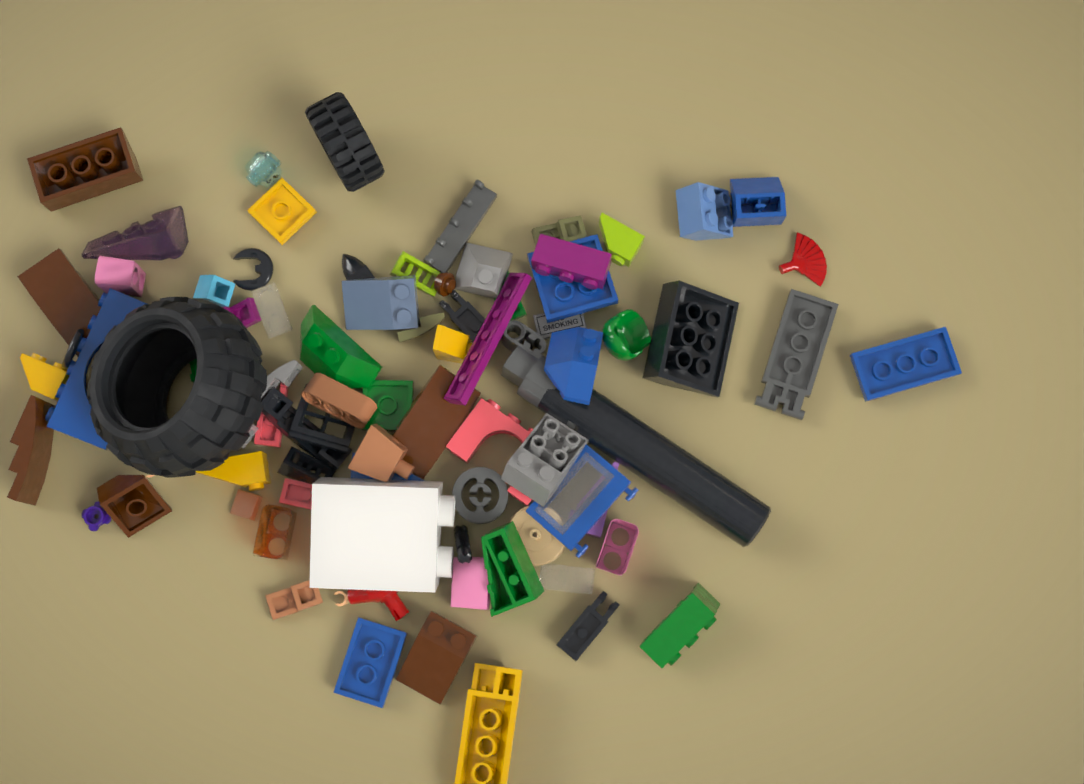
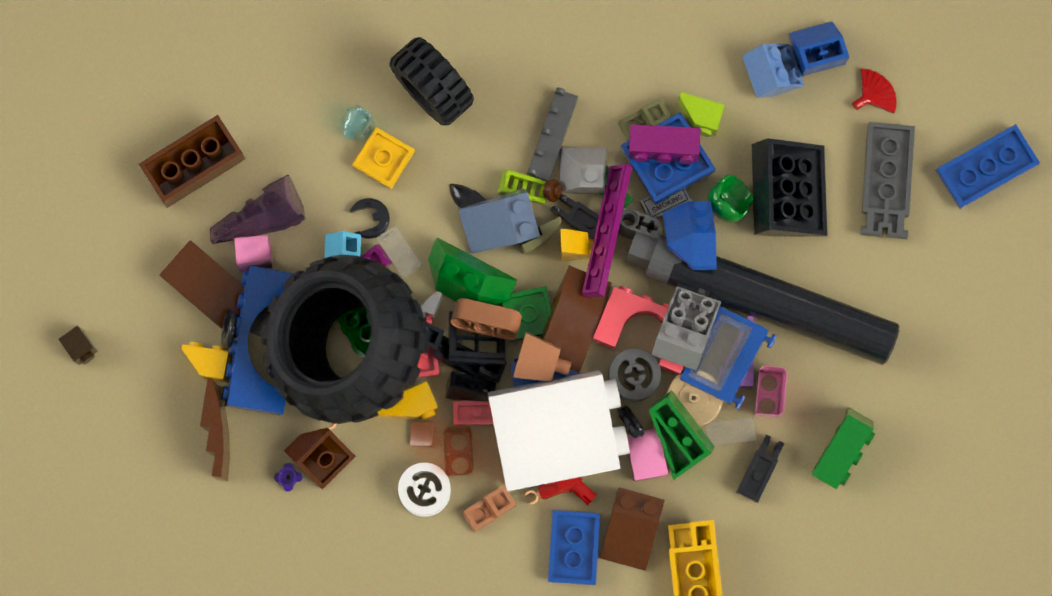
camera: 15 degrees left, 0 degrees up
(216, 550) = (406, 482): none -> white wheel

